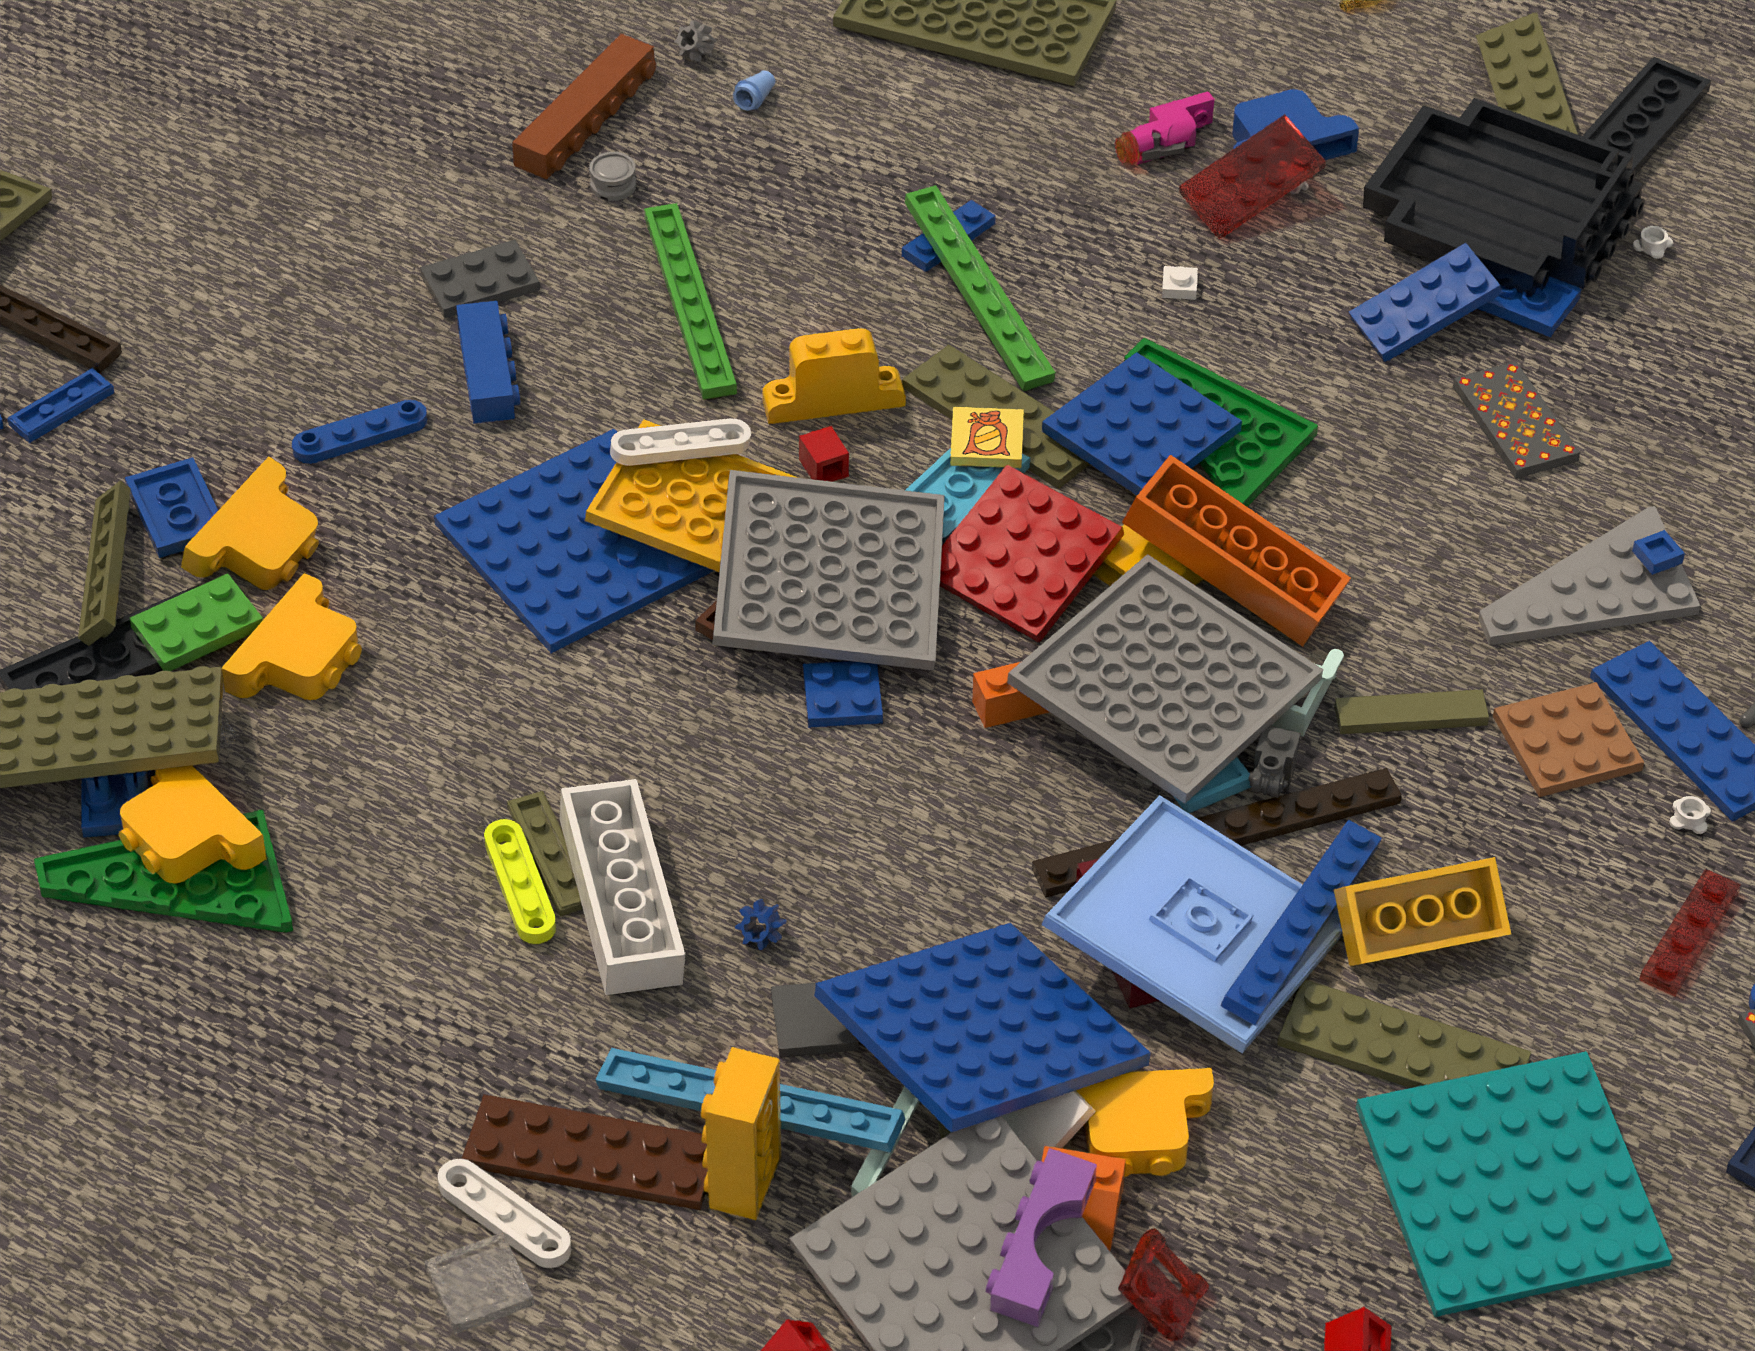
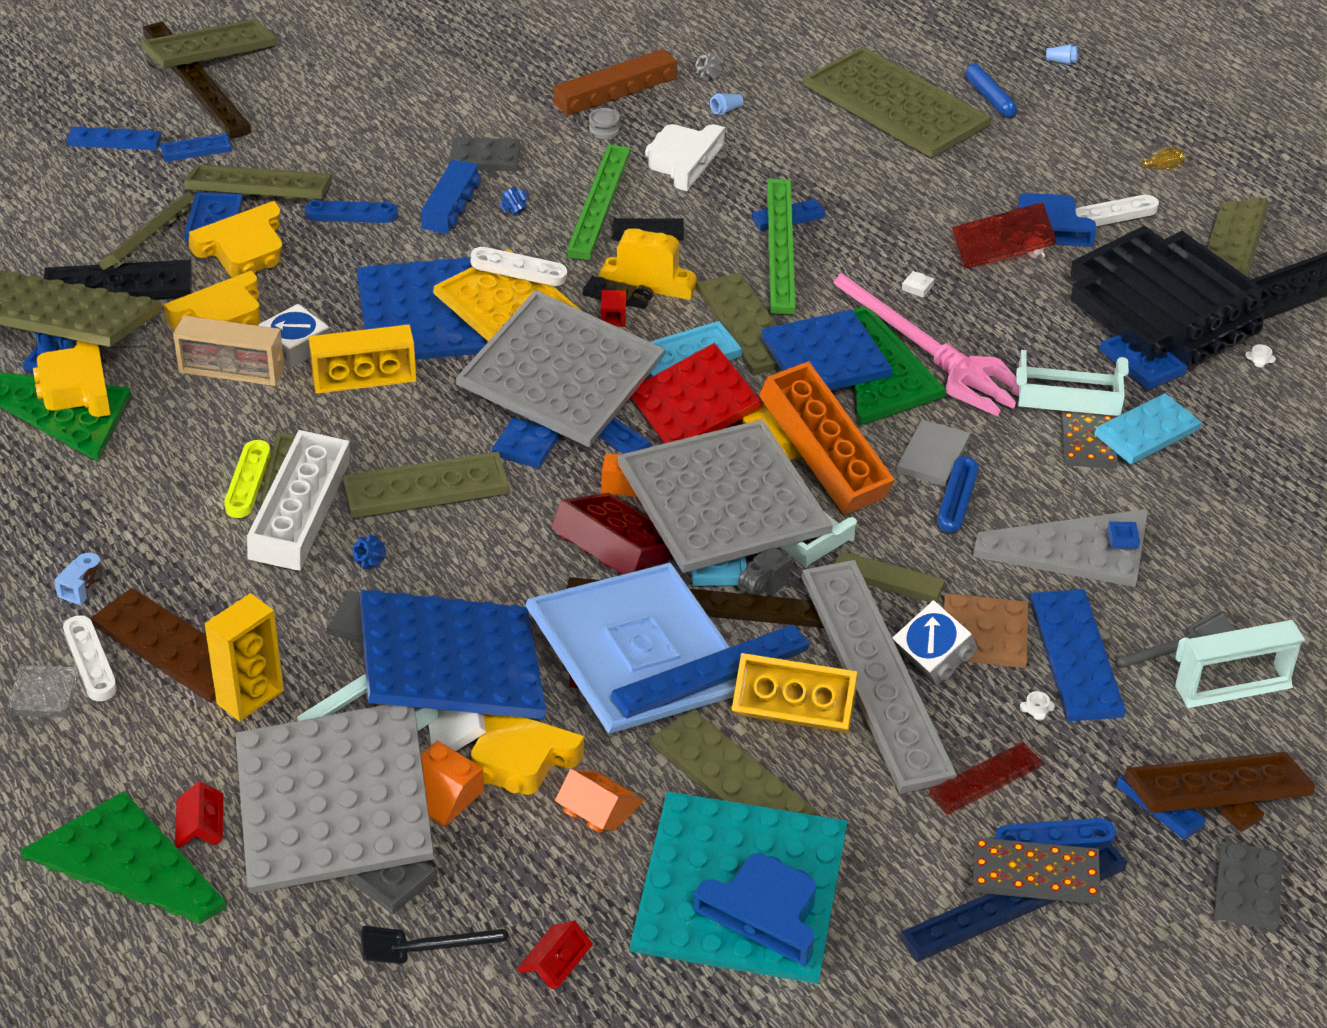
camera: 25 degrees right, 5 degrees down
(196, 623) = (171, 277): bright green plate -> none
(200, 430) = (258, 181): none -> olive plate
(367, 705) = (229, 350): none -> tan brick
(404, 1098) = (78, 578): none -> light blue leg
(429, 649) = (295, 328): none -> piece
(556, 651) = (362, 358): none -> yellow brick
(579, 339) = (514, 200): none -> blue gear
(751, 187) = (684, 152): none -> white brick
(759, 801) = (425, 484): none -> olive plate
(784, 320) = (668, 226): none -> black plate
(784, 430) = (635, 296): none -> black hinge
(800, 1108) = (295, 657): dark azure plate -> none
(968, 642) = (623, 437): none -> blue tile
(987, 437) = (720, 327): light yellow tile -> none
(1050, 781) = (611, 532): none -> dark red slope
(1058, 1193) = (410, 764): medium lavender arch -> none
(1154, 1293) = (443, 859): clear red plate -> none
(1169, 130) = (971, 197): dark pink plate -> none
(1275, 1144) = (596, 799): none -> slope
(1321, 389) = (962, 370): none -> bright pink piece
(1354, 519) = (933, 452): none -> light grey tile
(1361, 86) = (1120, 209): none -> white plate
(1424, 567) = (957, 494): none -> blue piece
(1425, 302) = (1070, 339): blue plate -> none
(1473, 828) = (883, 685): none -> light grey plate
(1476, 387) = (1072, 398): none -> light aqua piece
(1536, 781) = (935, 643): none -> piece
(1573, 1196) = (764, 905): none -> blue brick
(1587, 392) = (1148, 428): none -> medium azure plate

